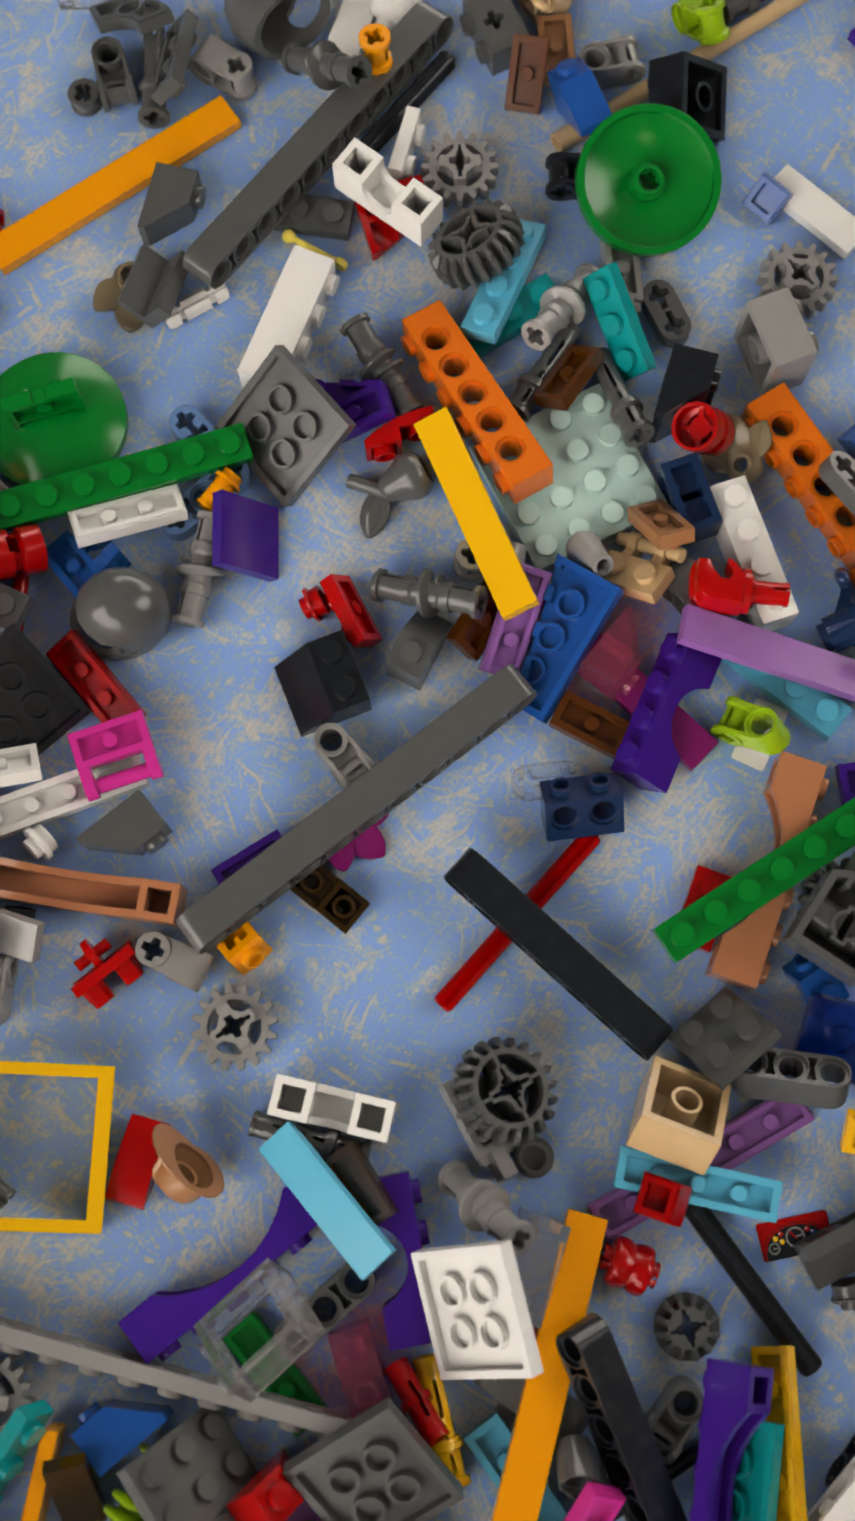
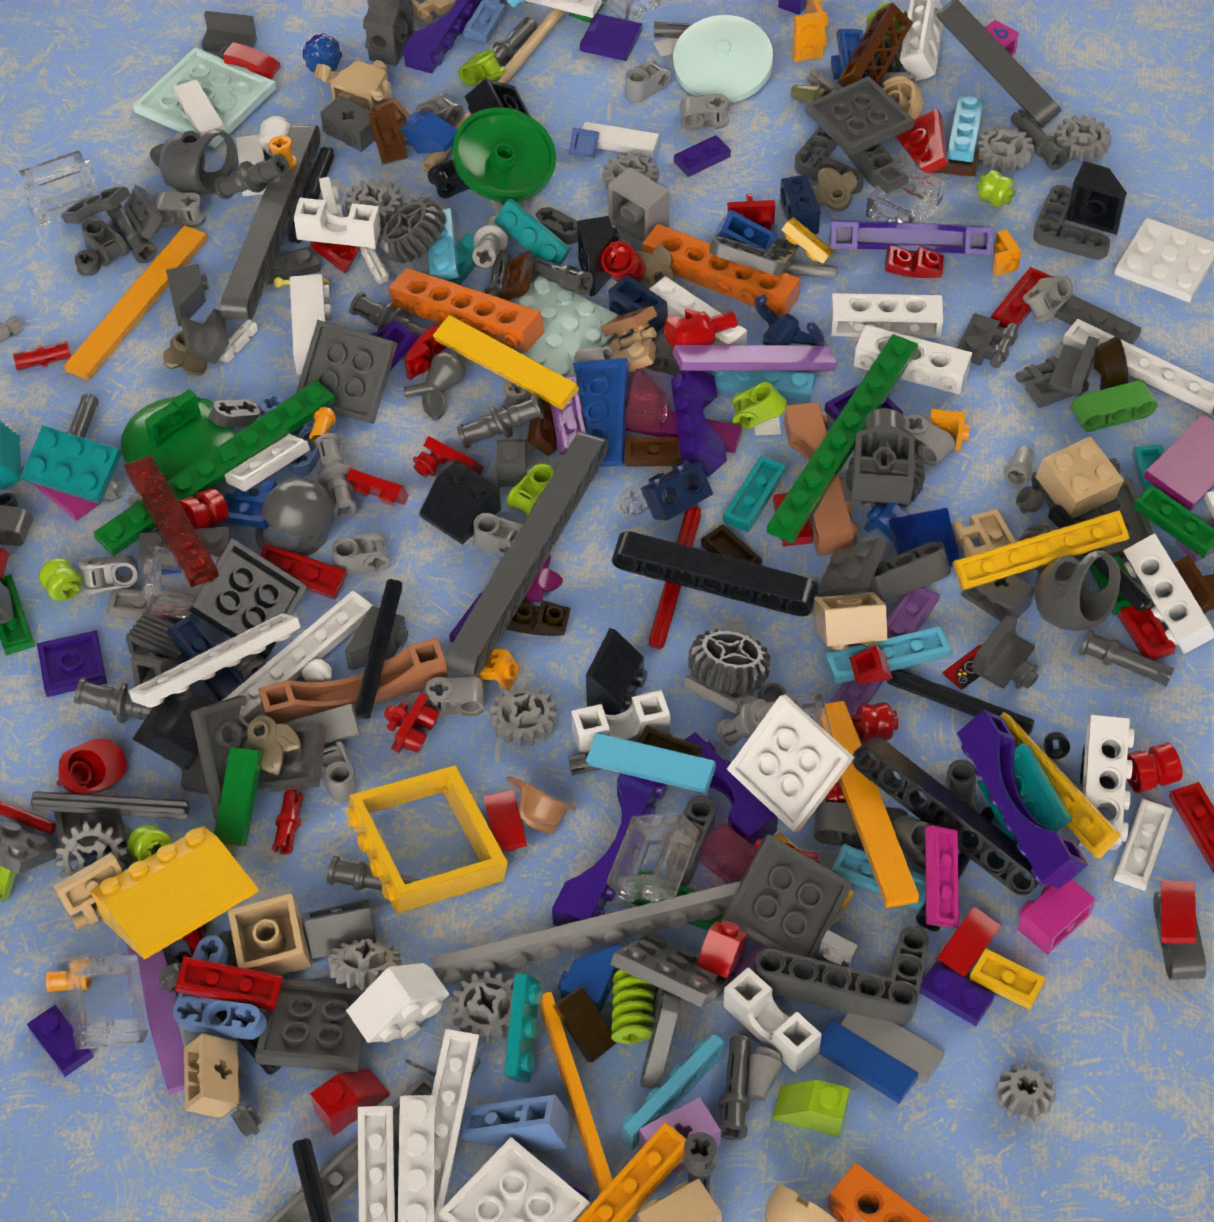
camera: 30 degrees left, 25 degrees down
(111, 743) = (336, 588): dark pink plate -> none
(111, 859) = (378, 649): none -> black axle
(132, 412) = (234, 413): none -> dark grey beam
(180, 698) = (358, 554): none -> light grey piece
(232, 601) = (386, 490): none -> red plate
(245, 536) = (356, 442): dark purple tile -> none
(361, 1041) = (614, 674): none -> black slope
(412, 712) = (527, 492): none -> lime piece
(414, 270) = (375, 265): none -> white axle
(603, 918) = (725, 543): none -> dark brown tile
(669, 1317) = (936, 755): dark grey gear -> none
(677, 851) = (754, 493): none -> teal plate
(828, 1411) = (1063, 744): none -> black hinge

